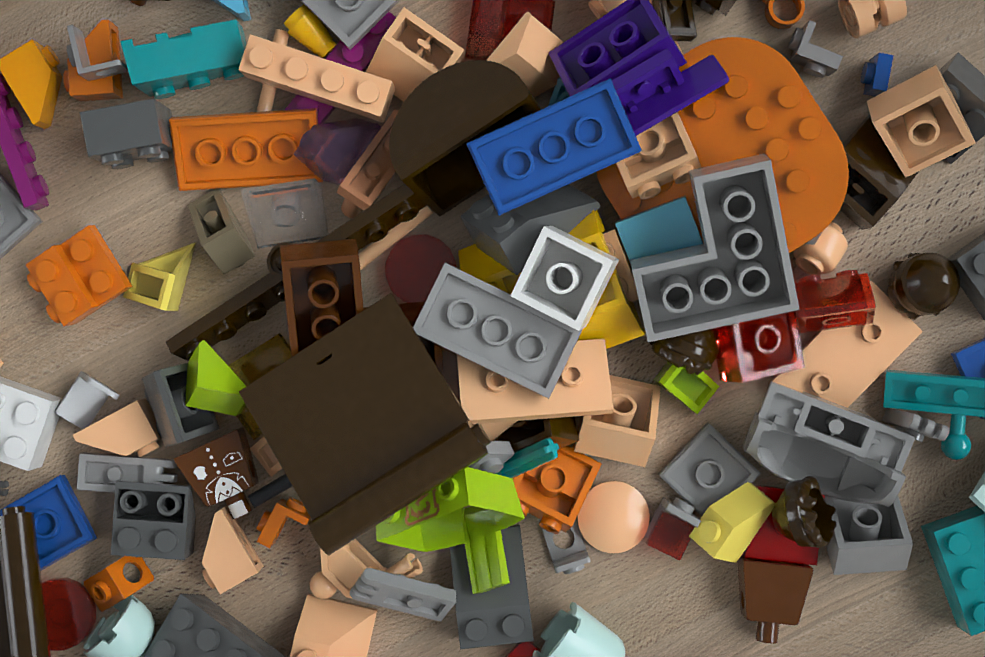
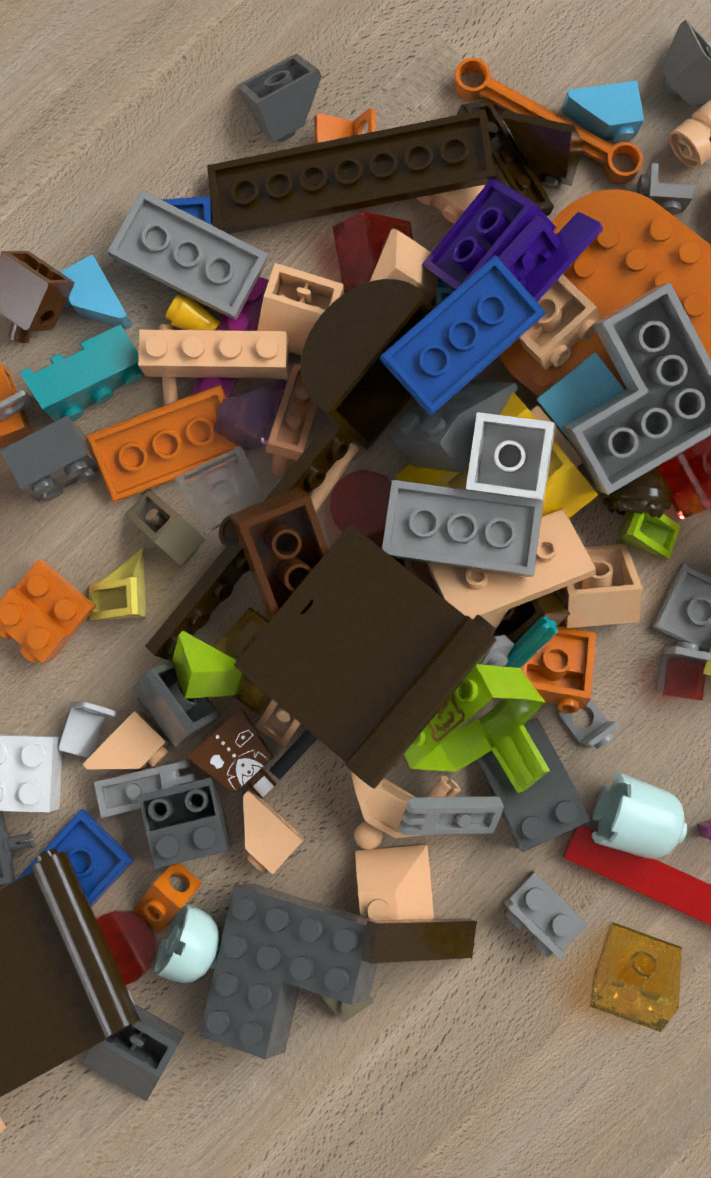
camera: 20 degrees left, 5 degrees down
(273, 522) = (300, 790): orange bracket -> none
(613, 517) = (624, 681): light nougat dish -> none

